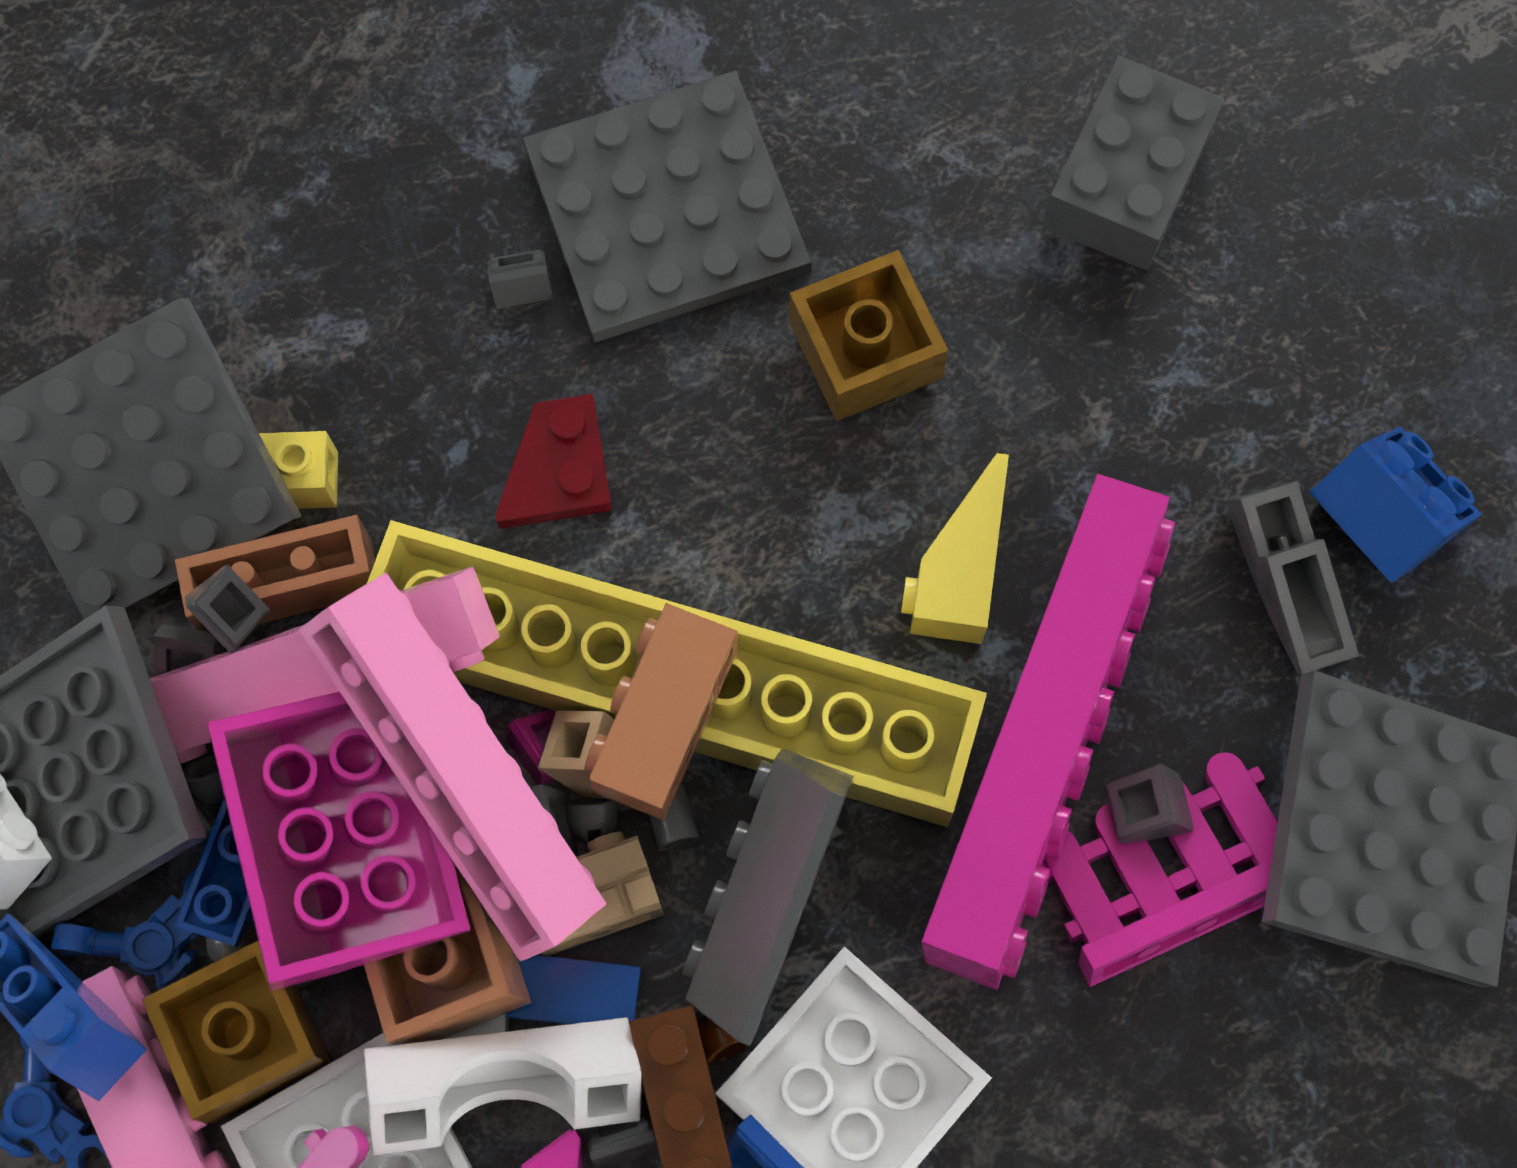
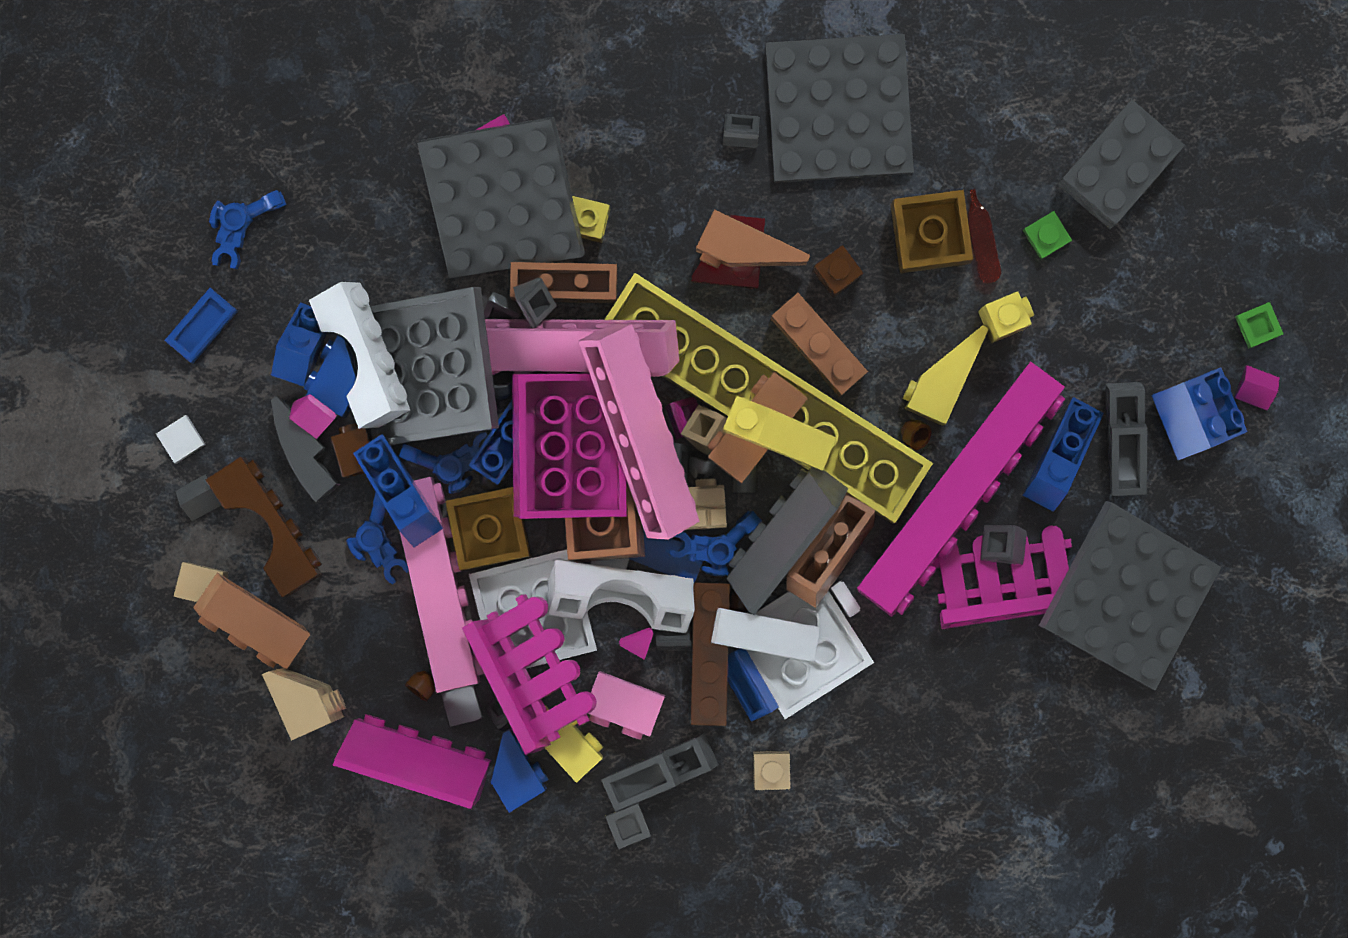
camera: 20 degrees right, 15 degrees up
(563, 433) = (739, 245): none -> nougat slope
(651, 957) = (716, 550): none -> blue piece
(697, 697) = (778, 433): none -> light yellow slope
(733, 439) = (837, 271): none -> reddish brown brick
(735, 562) = (818, 344): none -> nougat brick
(781, 1079) = (765, 634): none -> white tile
(854, 895) = (830, 551): none -> nougat brick
(905, 977) = (845, 598): none -> white tile
(942, 660) = (915, 434): none -> reddish brown hinge
(966, 355) = (983, 241): none -> clear red piece
(1031, 427) = (1006, 316): none -> light yellow brick
(1053, 302) = (1047, 235): none -> bright green plate
(1198, 634) = (1063, 455): none -> blue slope
(1437, 343) = (1259, 325): none -> bright green plate
(1472, 442) = (1257, 388): none -> dark pink slope

